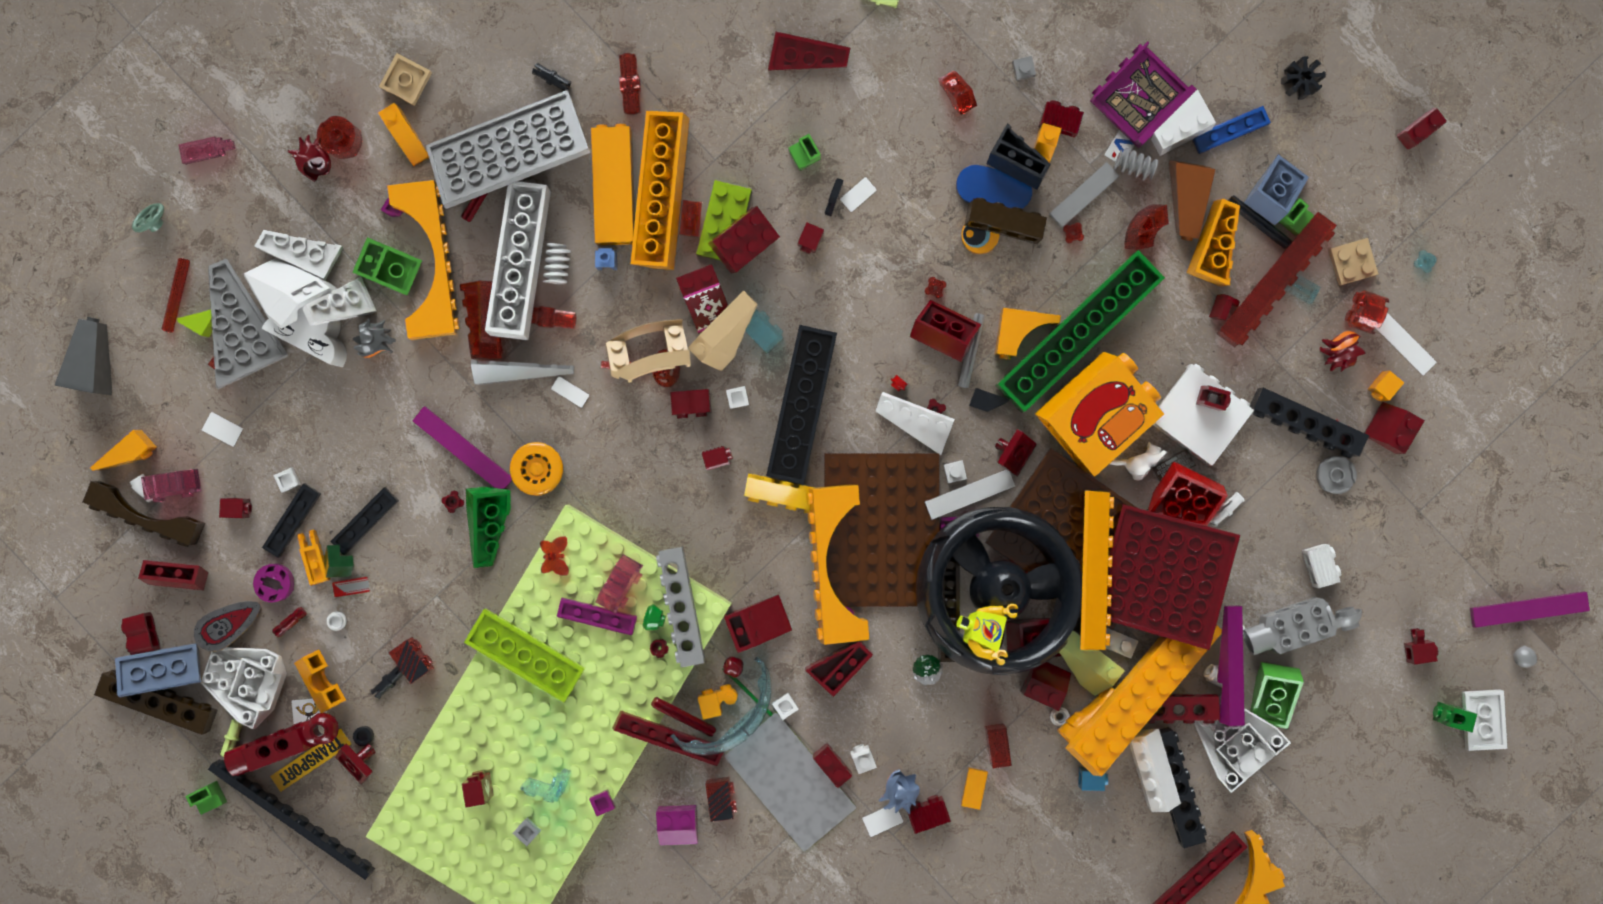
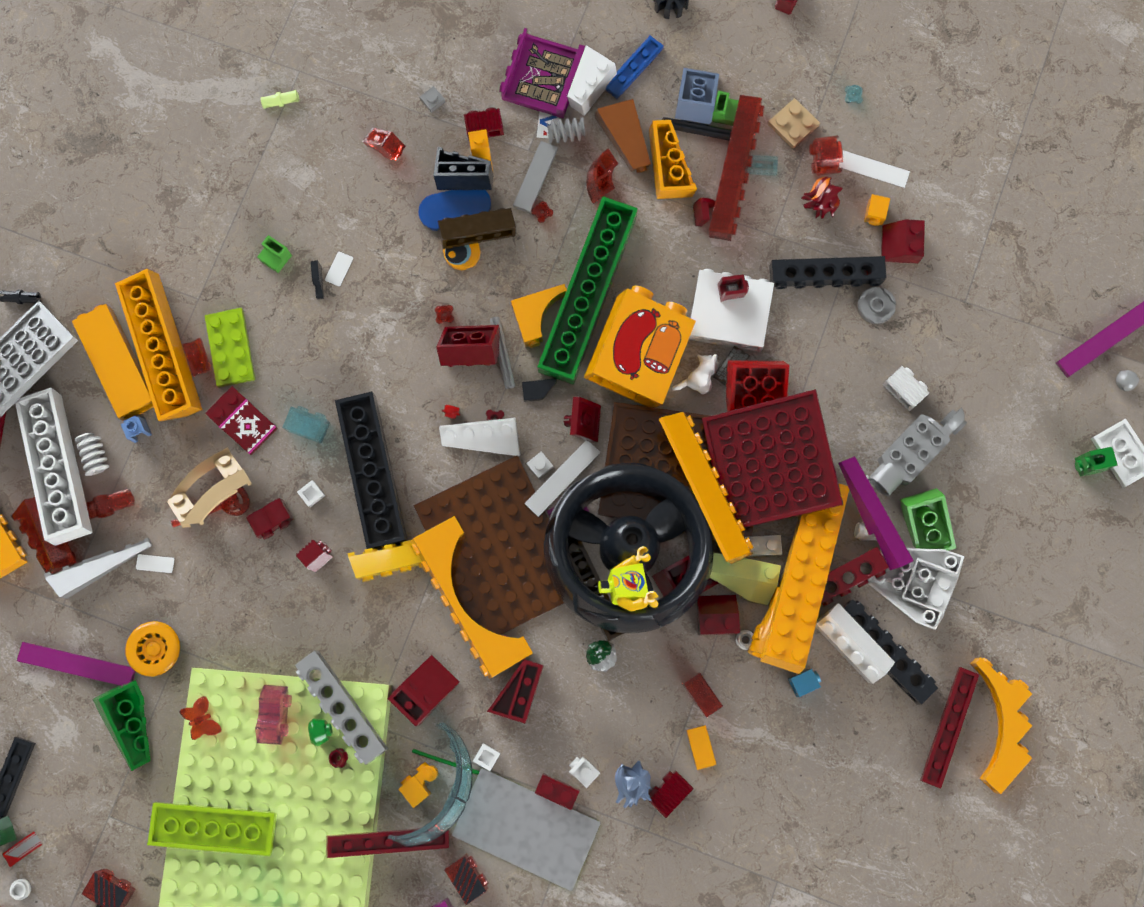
camera: 20 degrees left, 10 degrees down
(453, 496) = (87, 724): dark red plate -> none
(596, 616) = (266, 757): magenta tile -> none
(630, 83) = (92, 269): clear red piece -> none
(683, 716) = (392, 814): dark red axle -> none
(721, 339) = (270, 446): tan wedge -> none
(733, 666) = (420, 743): dark red piece -> none
(744, 239) = (251, 351): dark red brick -> none
(798, 53) = (235, 174): dark red wing -> none
(810, 238) = (312, 324): dark red brick -> none
(882, 820) = (631, 822): white sticker -> none
(1227, 508) = (797, 379): white pin -> none
(1420, 650) = (1033, 419): dark red brick -> none

